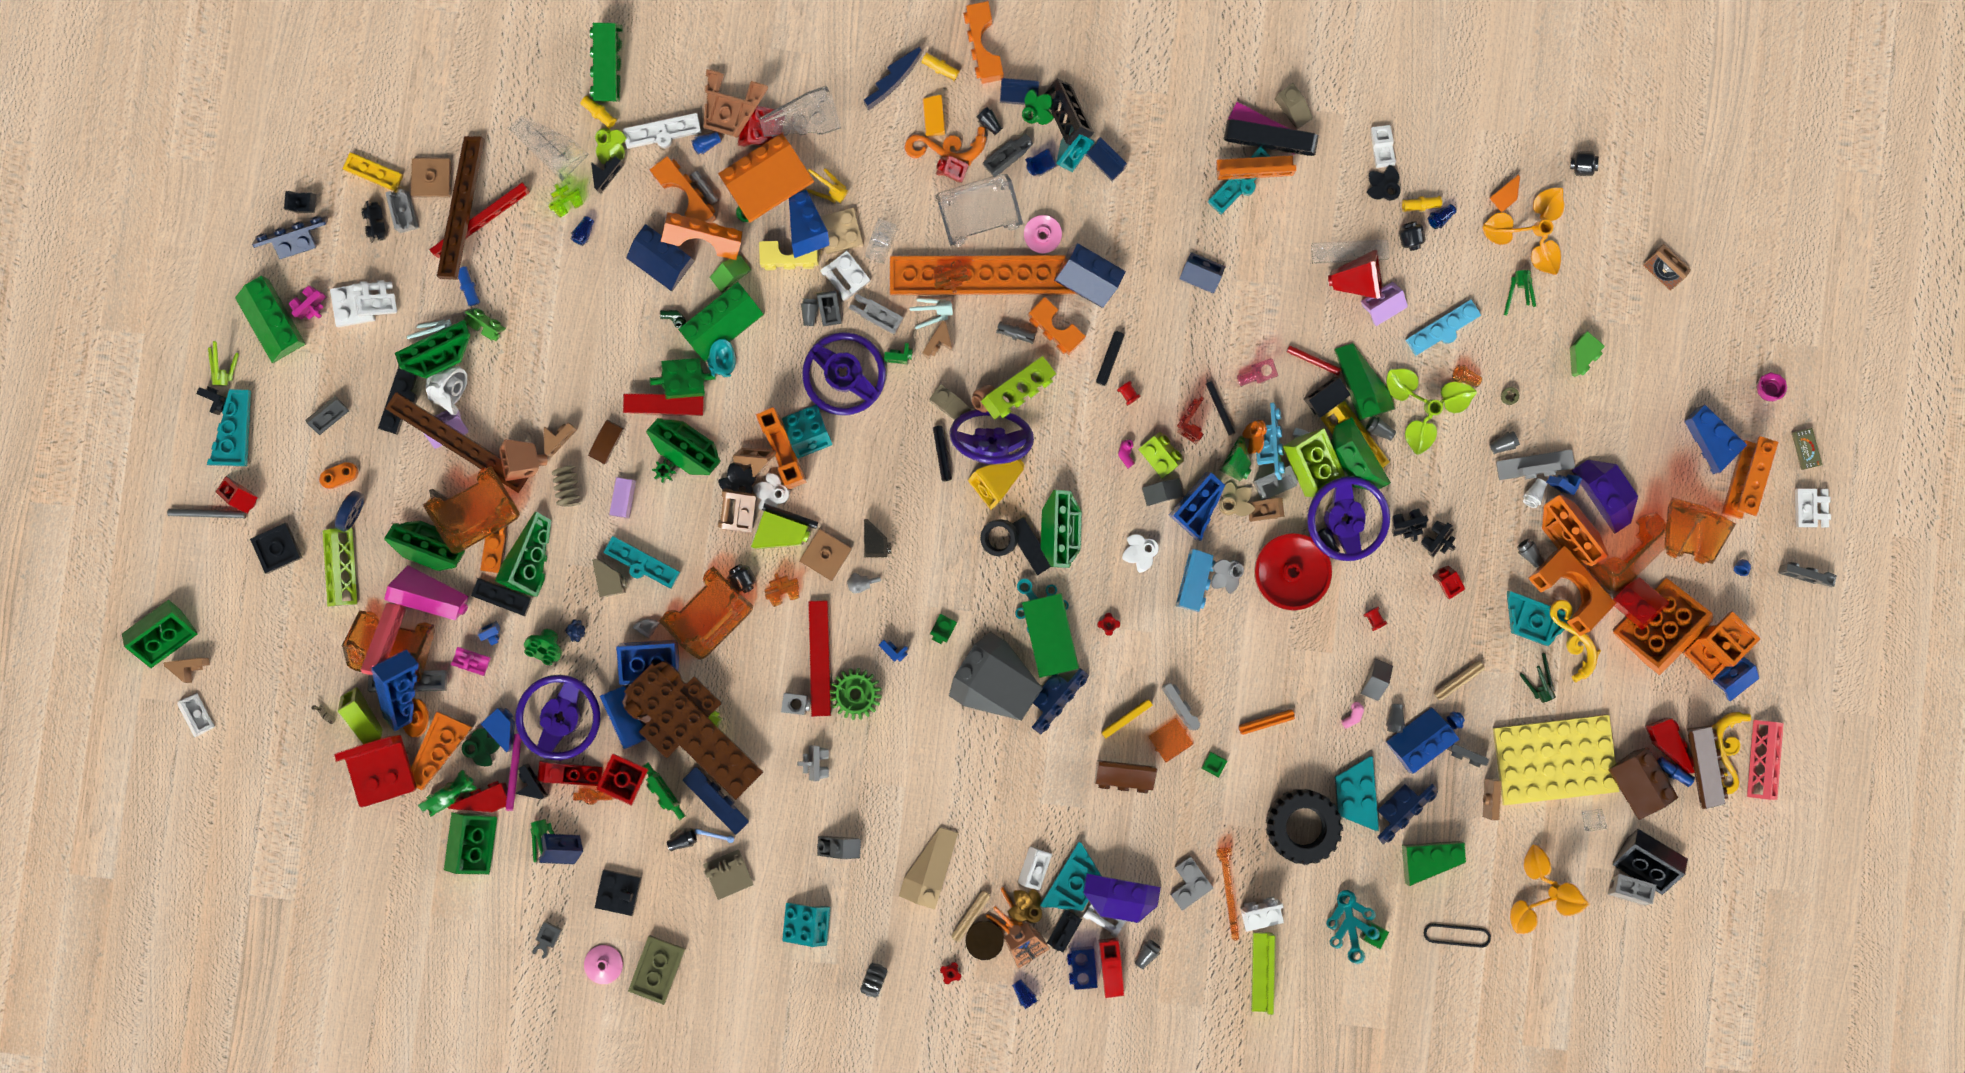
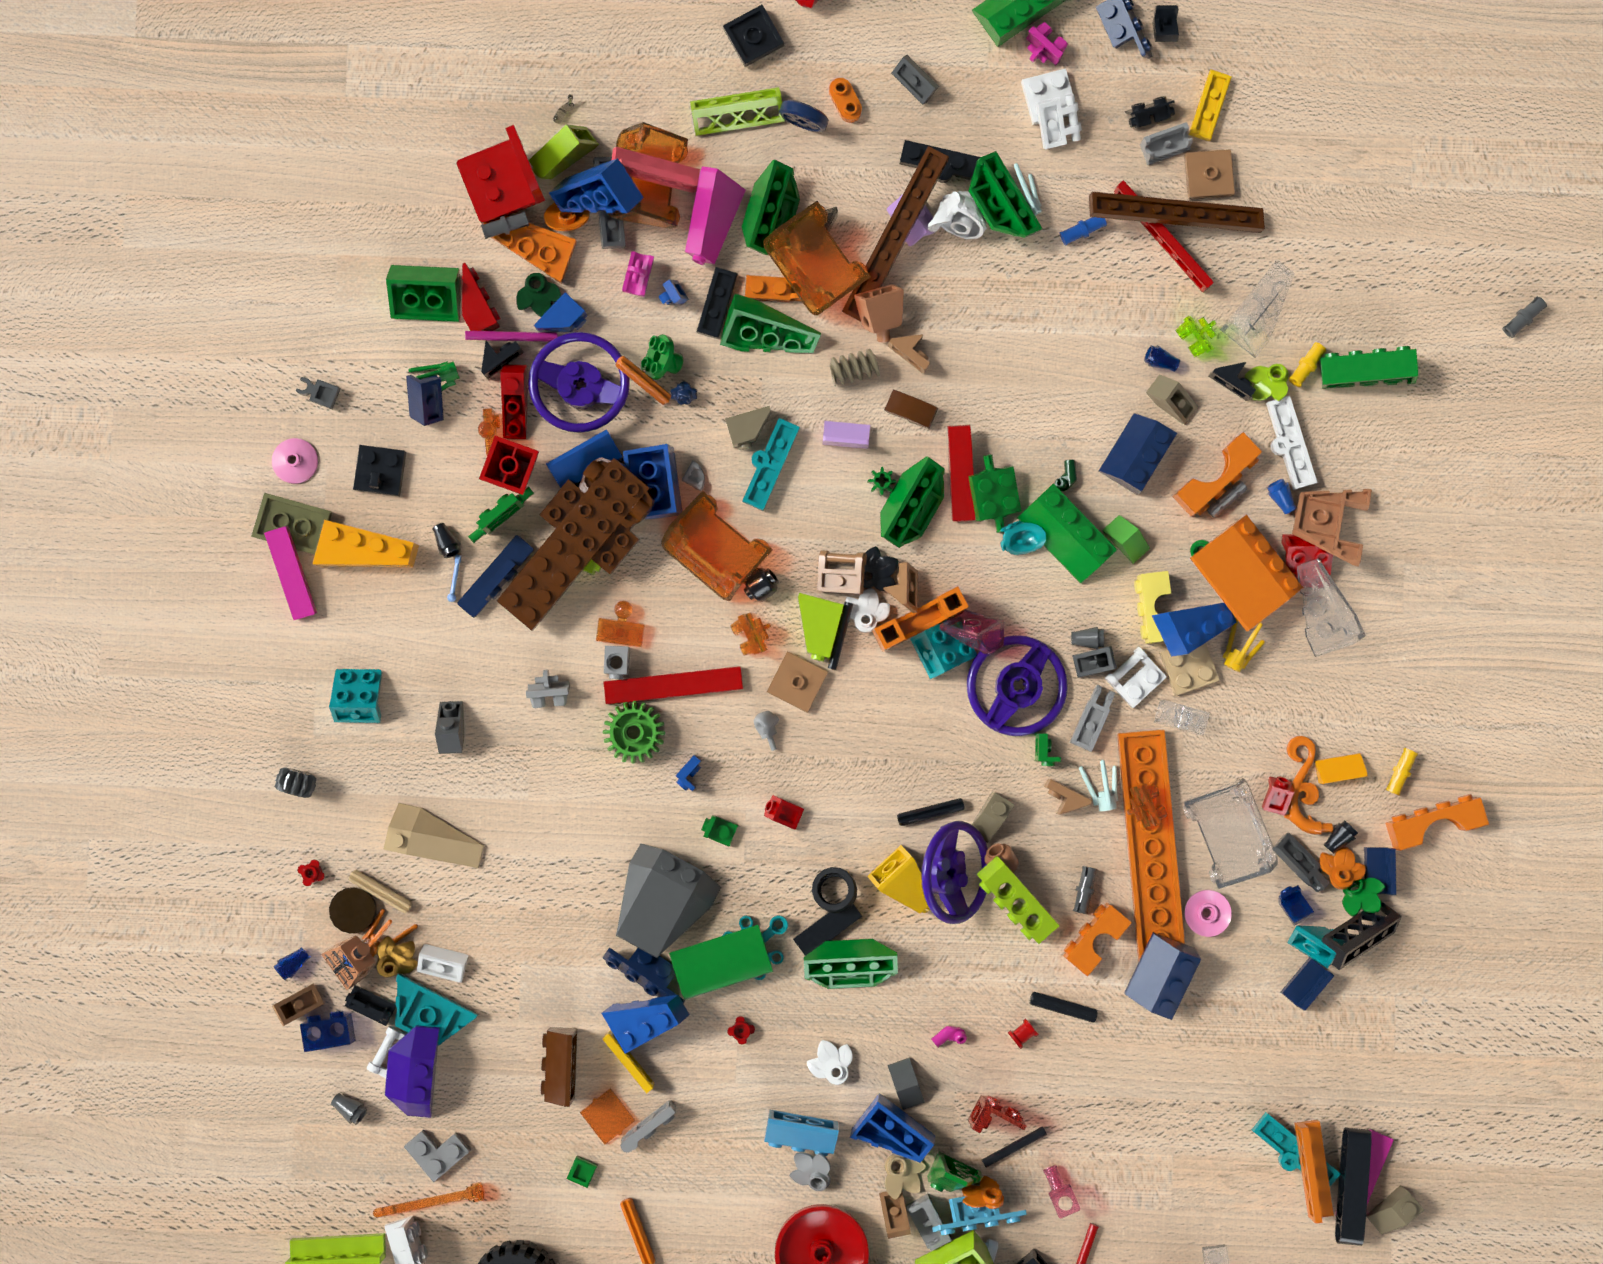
camera: 80 degrees right, 0 degrees up
(418, 770) = (504, 225): none -> dark grey pin
(447, 794) = (479, 261): green animal -> none
(476, 318) = (1045, 244): bright green hinge -> none
(564, 660) = (643, 380): none -> orange axle
(616, 225) = (1172, 398): none -> dark tan slope
(681, 228) = (1175, 476): orange arch -> none
(681, 914) = (356, 547): none -> light orange wedge
(697, 973) = (290, 573): none -> dark pink tile
(728, 874) = (409, 598): dark tan hinge -> none
(769, 699) = (621, 630): none -> clear orange plate
(795, 403) = (976, 631): none -> clear pink slope
(875, 542) = (817, 740): clear smoke slope -> none
(897, 73) = (1388, 720): dark blue slope -> none
(932, 574) = (783, 812): none -> red bracket
(1012, 122) = (1342, 864): none -> orange plate
(1058, 990) = (298, 1004): none -> medium nougat slope
(1093, 703) = (644, 1020): none -> blue wedge
(1111, 967) = (331, 1066): red slope -> none
(1161, 454) = (951, 1079): lime bracket -> none
(1202, 272) = (1178, 1112): panel -> none

